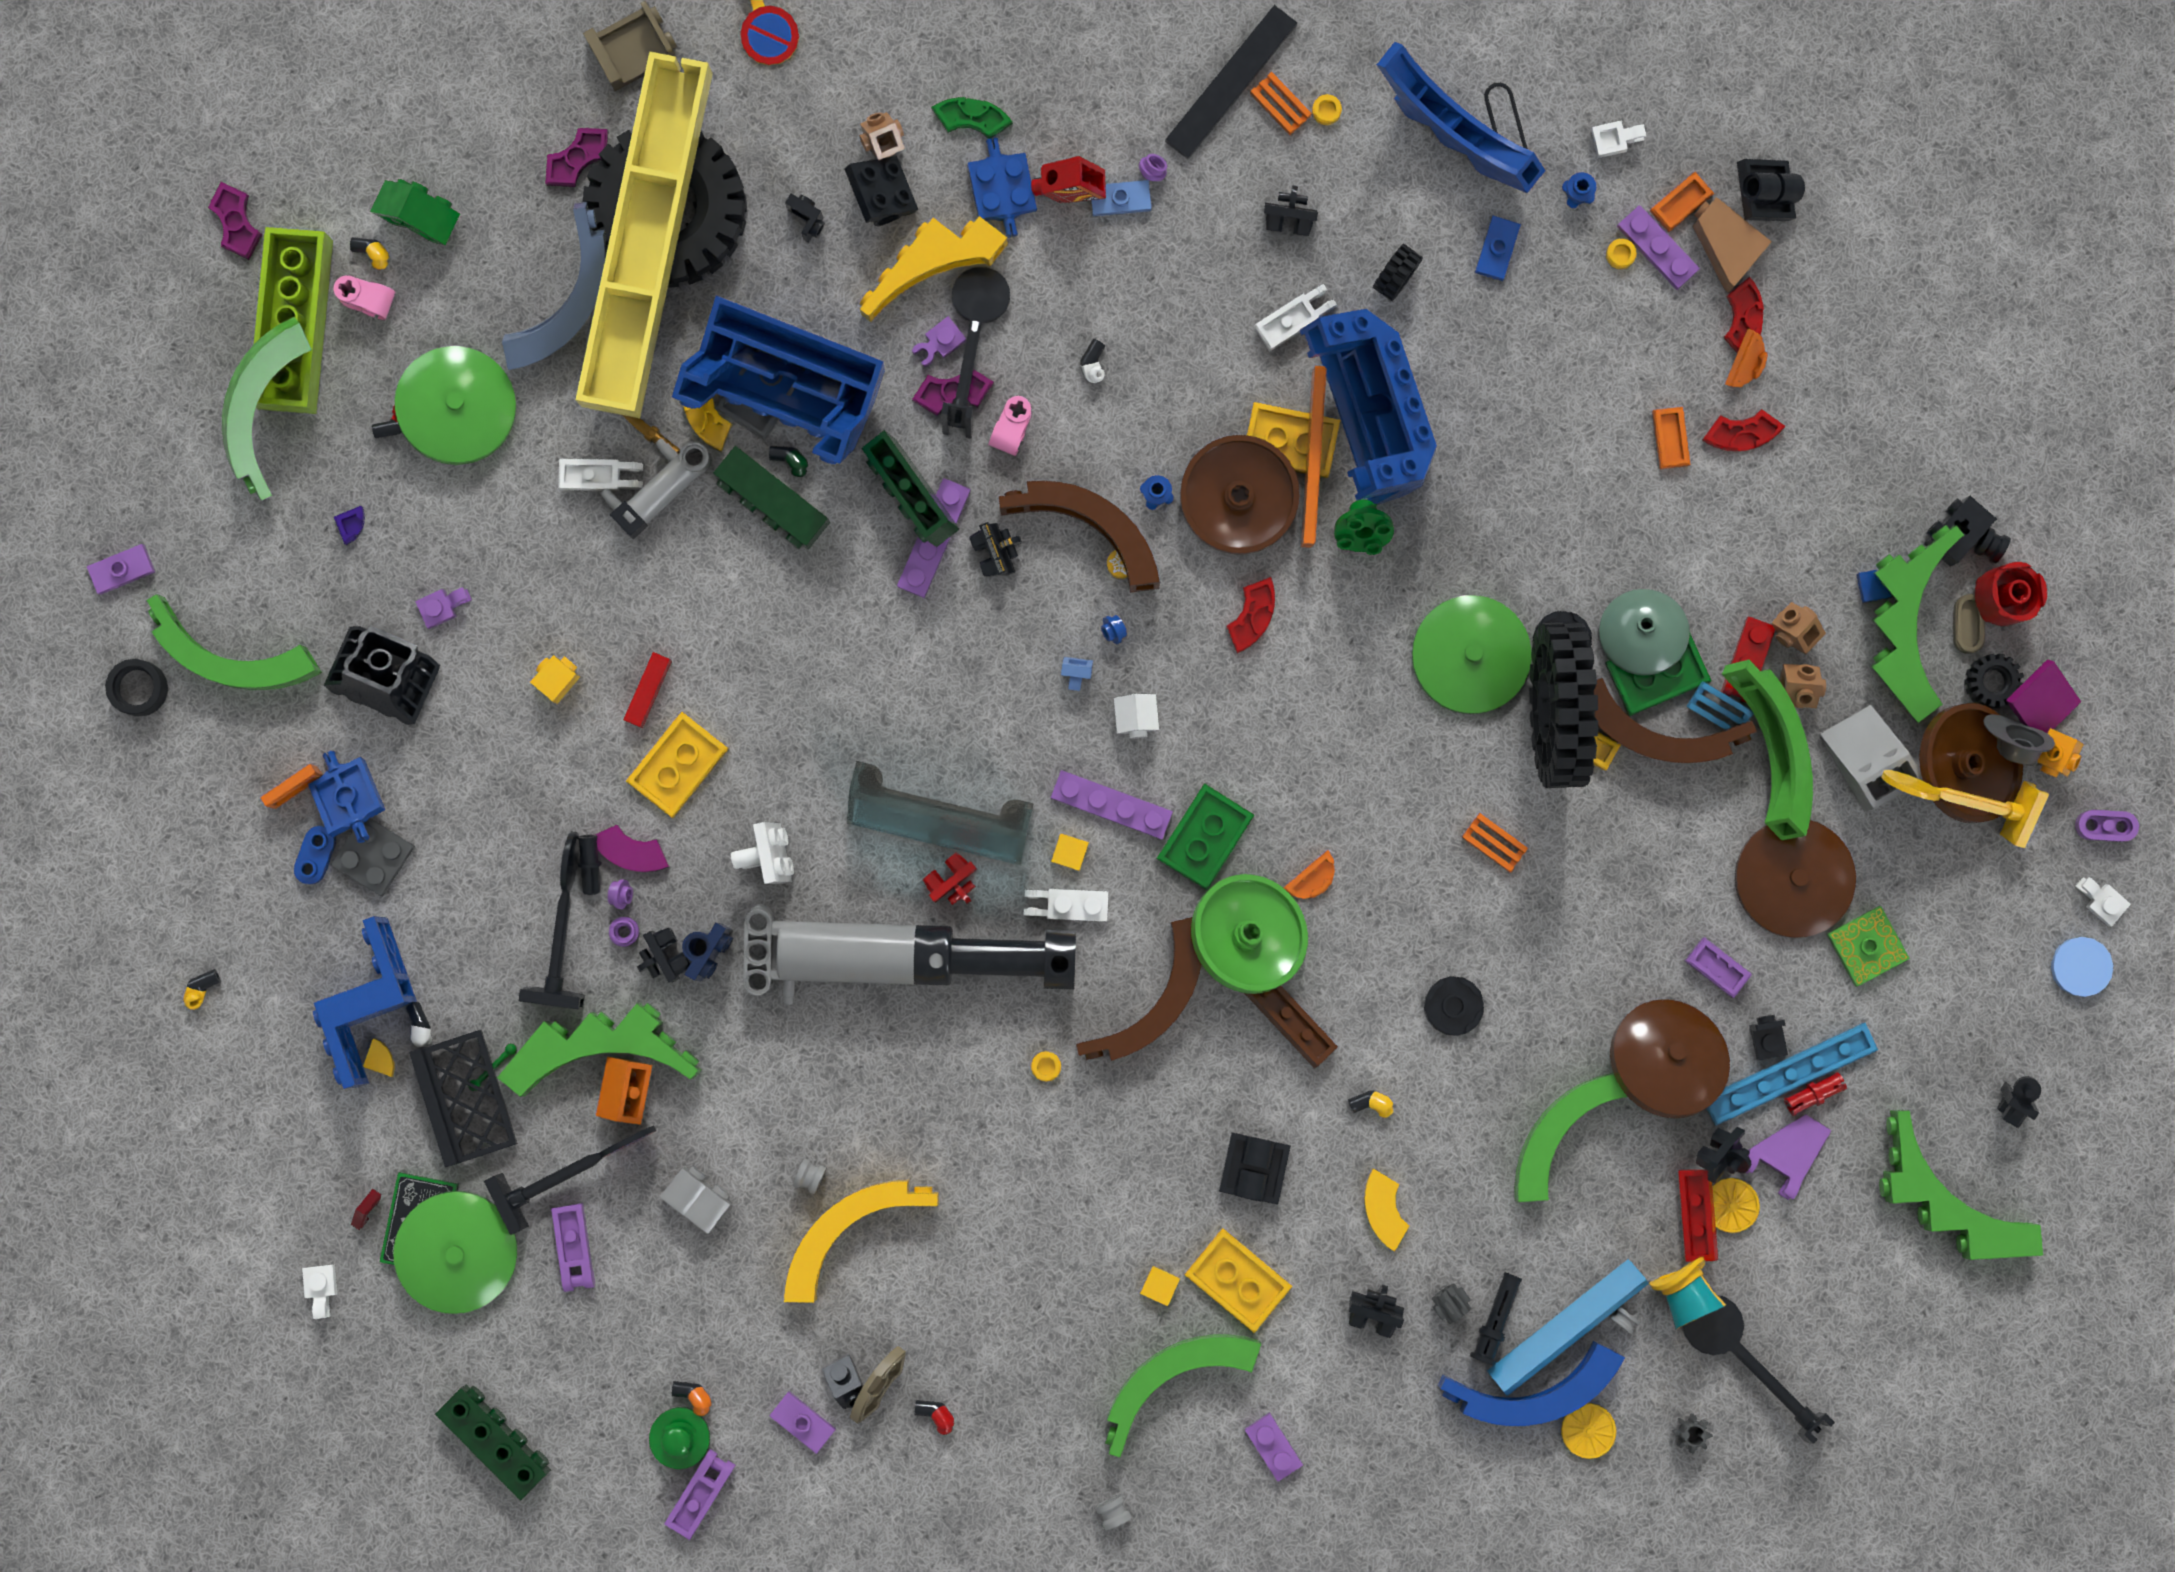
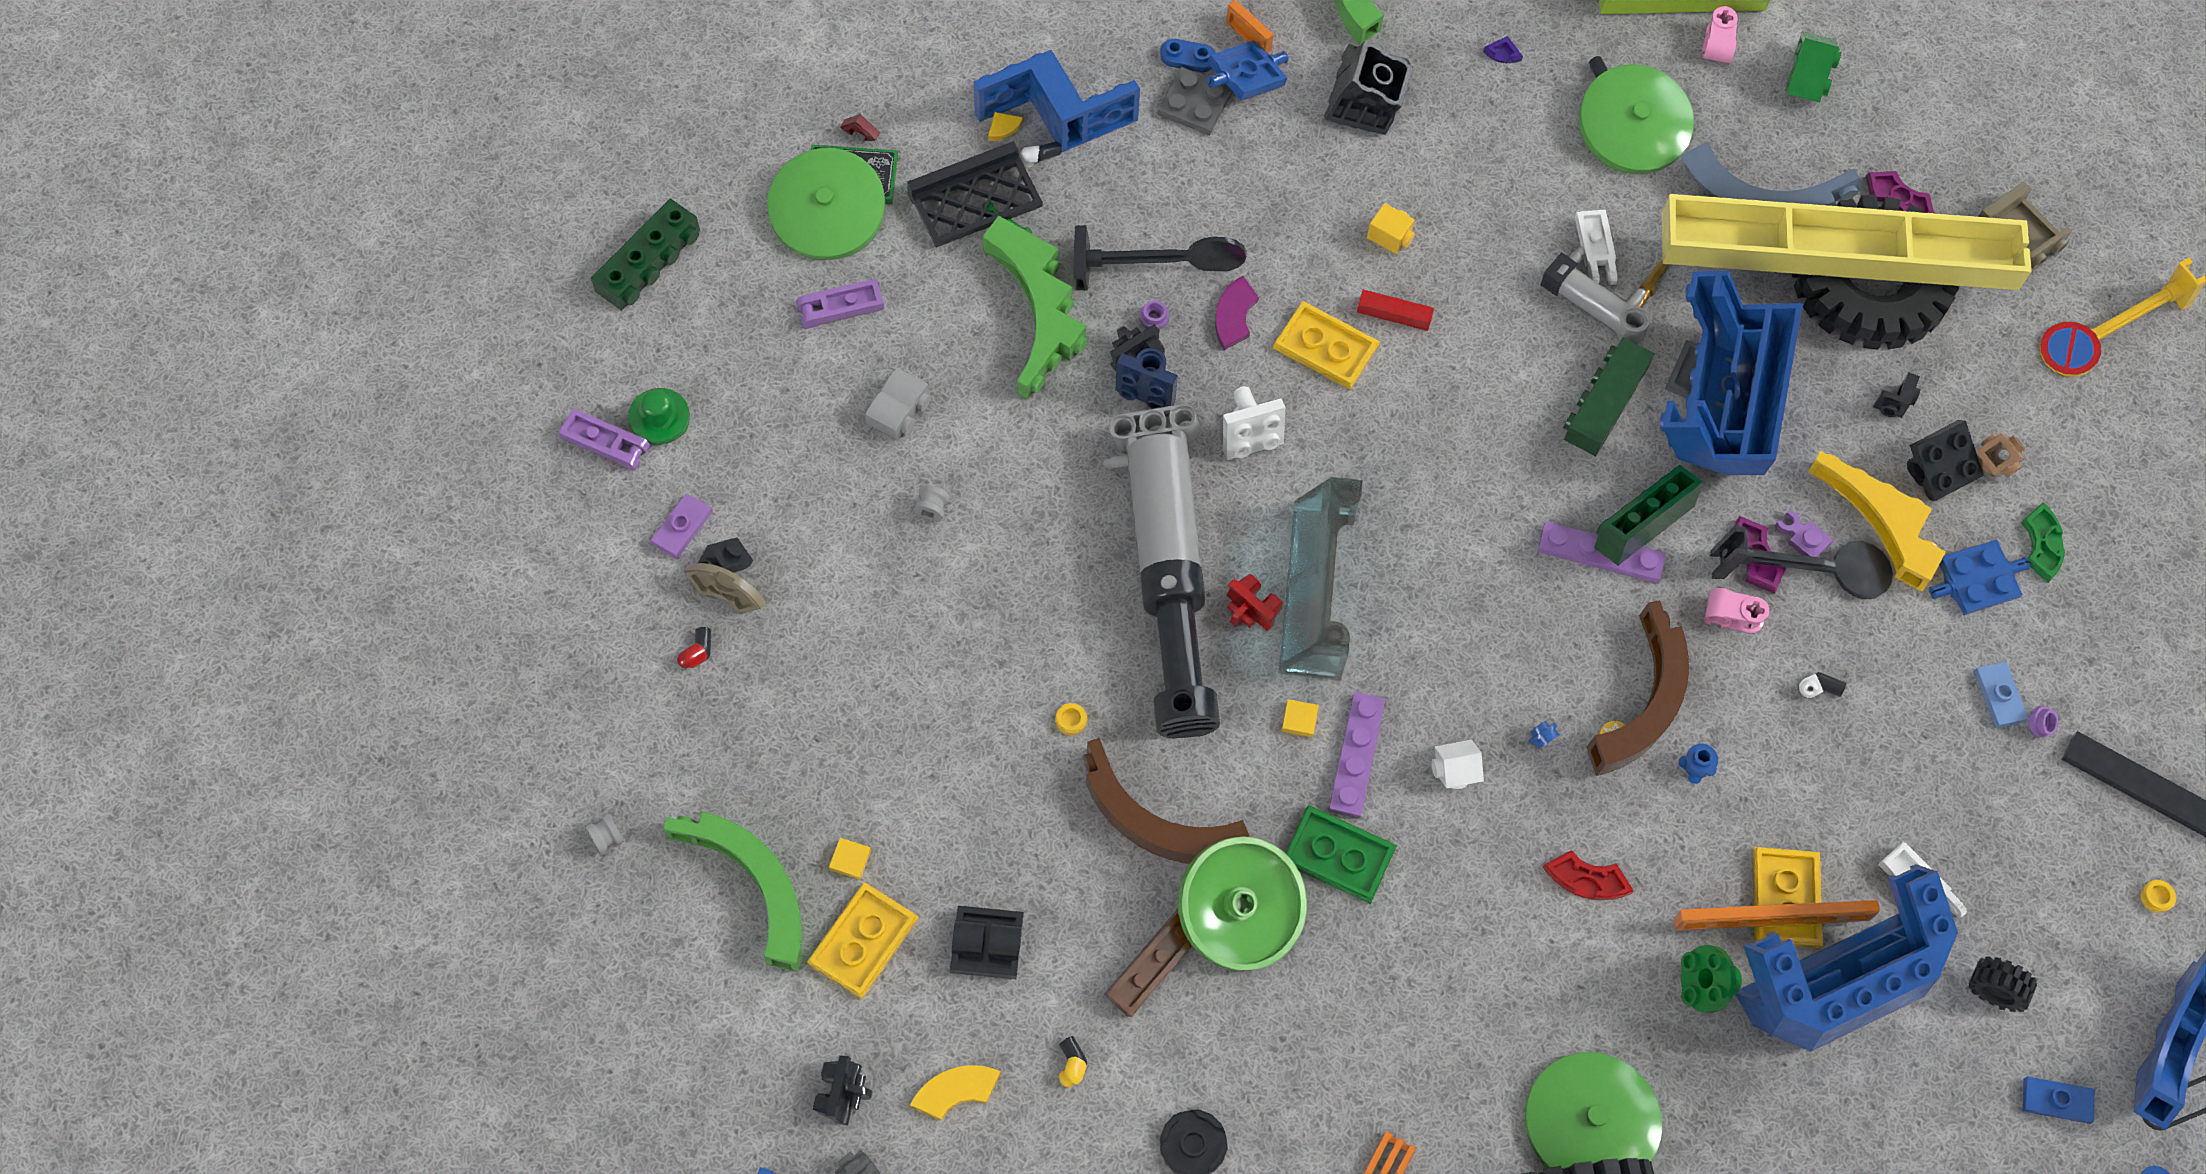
camera: 80 degrees right, 20 degrees down
(320, 1284) = (784, 100): white plate -> none
(373, 249) = (1765, 41): yellow arm -> none
(439, 607) = (1442, 129): medium lavender plate -> none
(509, 1201) = (880, 243): black piece -> none
(589, 864) = (1216, 276): black axle -> none
(620, 894) = (1191, 306): medium lavender plate -> none
(624, 1090) = (998, 327): orange brick -> none
(695, 1394) = (702, 426): arm -> none
(709, 425) = (1673, 333): yellow tile -> none
(792, 456) = (1652, 414): arm -> none
(810, 1255) = (866, 517): yellow arch -> none
(1000, 547) = (1605, 612): black hips -> none
(1070, 181) = (2007, 637): red torso -> none
(1070, 904) = (1244, 725): white hinge -> none
(1076, 670) = (1492, 701): medium blue tile -> none
(1239, 494) = (1716, 843): reddish brown dish -> none
(1263, 85) = (2164, 827): orange tile -> none
(1273, 1447) = (683, 997): medium lavender plate -> none
(1304, 217) = (2033, 881): black hips -> none
(1313, 879) = (1311, 973): orange tile -> none

